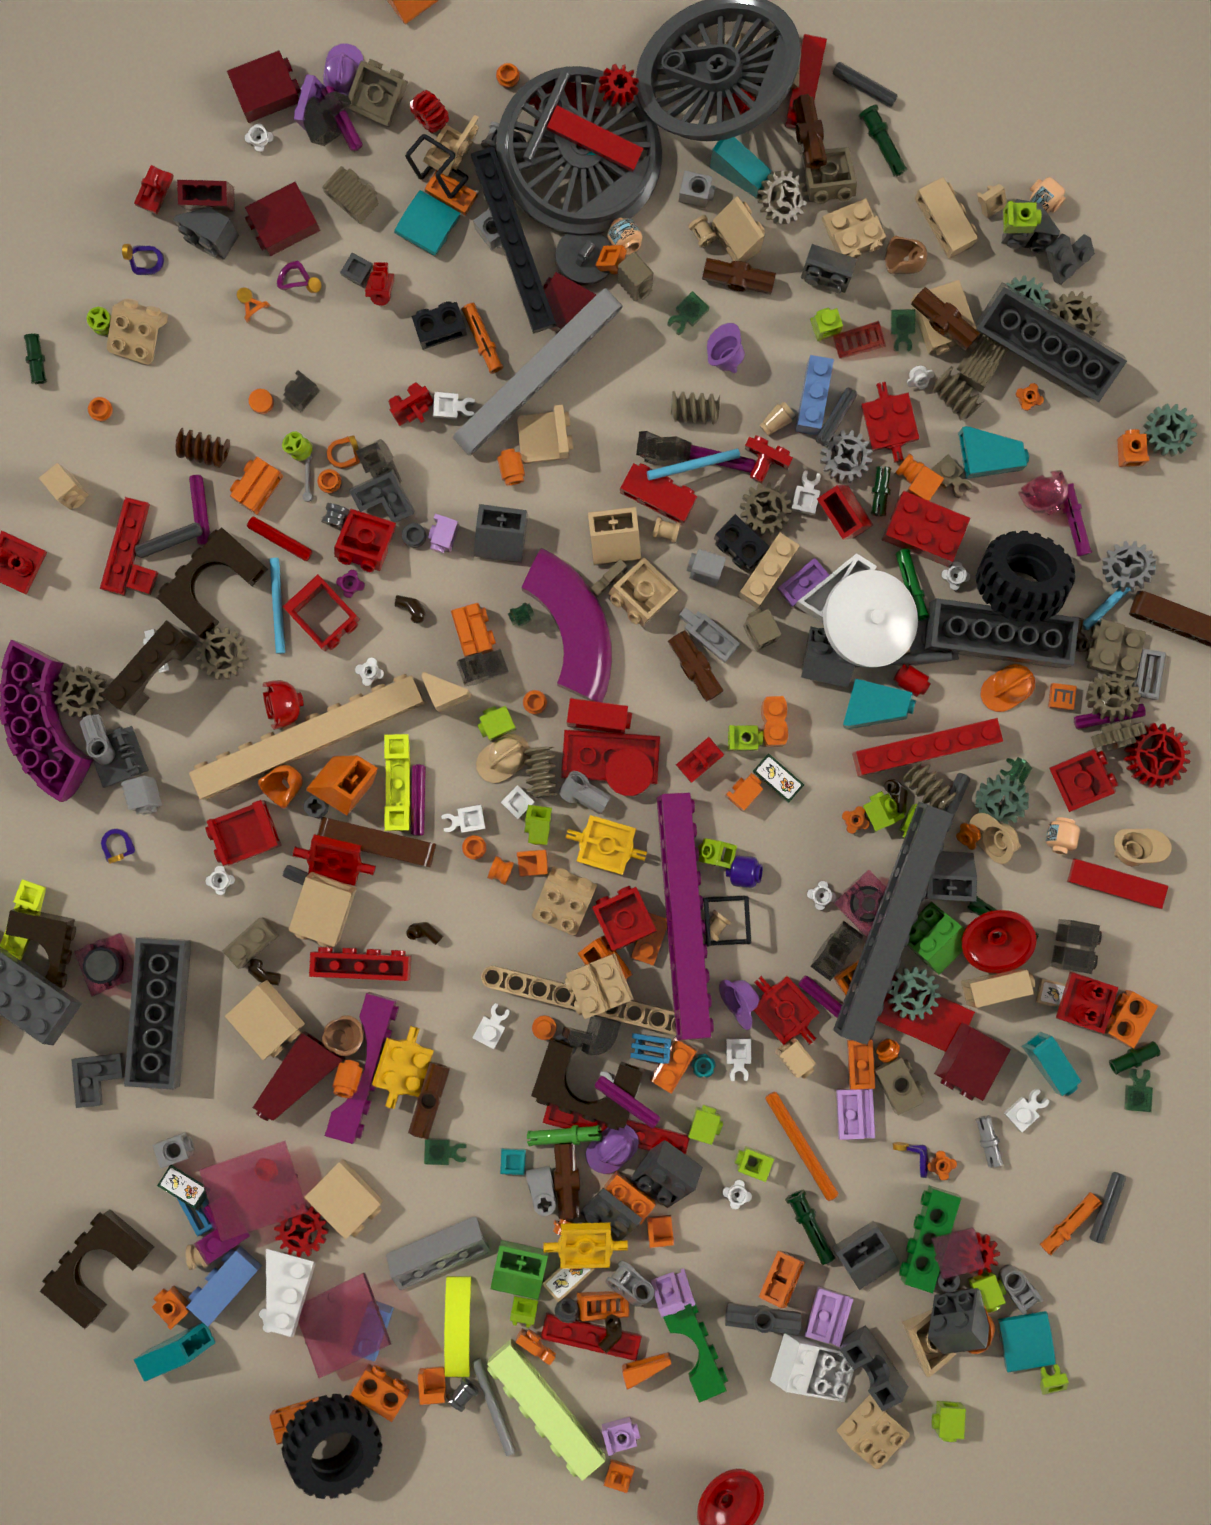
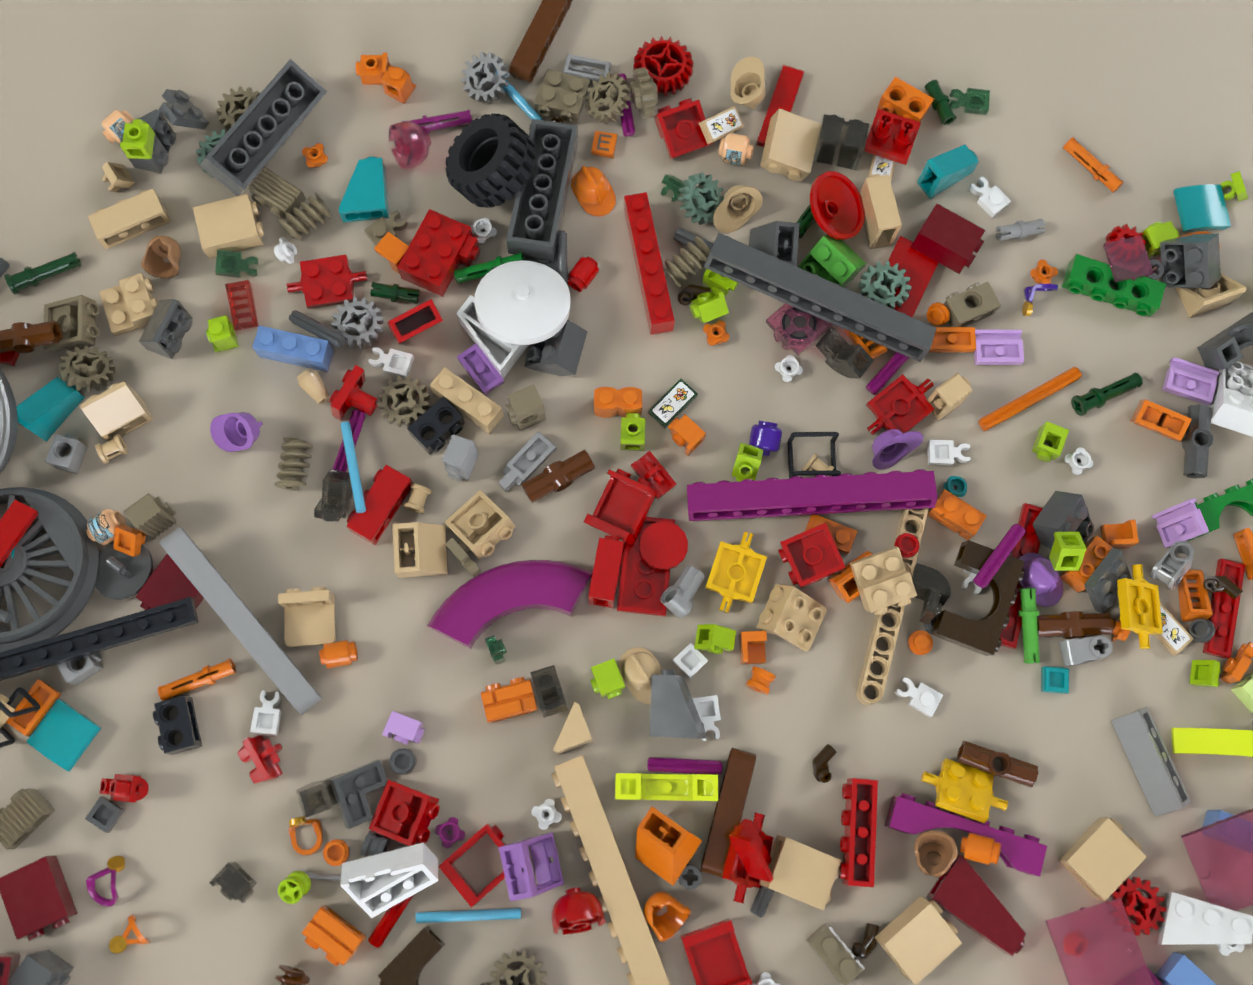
camera: 90 degrees left, 10 degrees down
(261, 401) = (240, 928): orange tile -> none
(306, 530) = (389, 877): none -> white wedge
(316, 645) = (519, 870): none -> medium lavender window
(338, 861) = (752, 850): none -> red panel
(413, 606) = (478, 764): dark brown arm -> none
(439, 1152) = (1048, 754): clear green plate -> none
(469, 786) = (673, 708): none -> dark grey slope
(474, 847) = (735, 708): orange plate -> none
(500, 533) = (408, 666): dark grey slope -> none
(519, 1269) = (1163, 675): bright green slope -> none
(534, 702) = (587, 639): orange plate -> none
(540, 772) = (660, 634): dark tan piece -> none
(635, 1171) = (1067, 551): none -> lime brick
(636, 1011) = (907, 544): none -> red plate
(639, 1047) = (950, 536): dark azure tile -> none
(664, 729) = (622, 506): none -> red panel
(689, 311) = (193, 466): clear green plate -> none
(705, 1124) = (1013, 487): lime brick -> none
(738, 276) = (163, 416): reddish brown piece -> none
(866, 1255) = (1130, 344): dark grey slope -> none
(876, 705) = (605, 305): teal slope -> none
(909, 468) = (375, 264): orange wheel -> none
(930, 563) = (469, 251): none -> red plate
(945, 318) = (230, 219): reddish brown piece -> none
(968, 835) = (734, 229): orange plate -> none
(1021, 1291) = (1155, 210): light grey piece -> none
(1069, 893) = (790, 145): none -> tan brick
(1089, 819) = (721, 124): none -> tile
(1107, 1207) = (1081, 135): dark grey axle -> none
(1116, 475) = (400, 80): none -> orange brick
(1174, 420) = (358, 36): sand green gear -> none

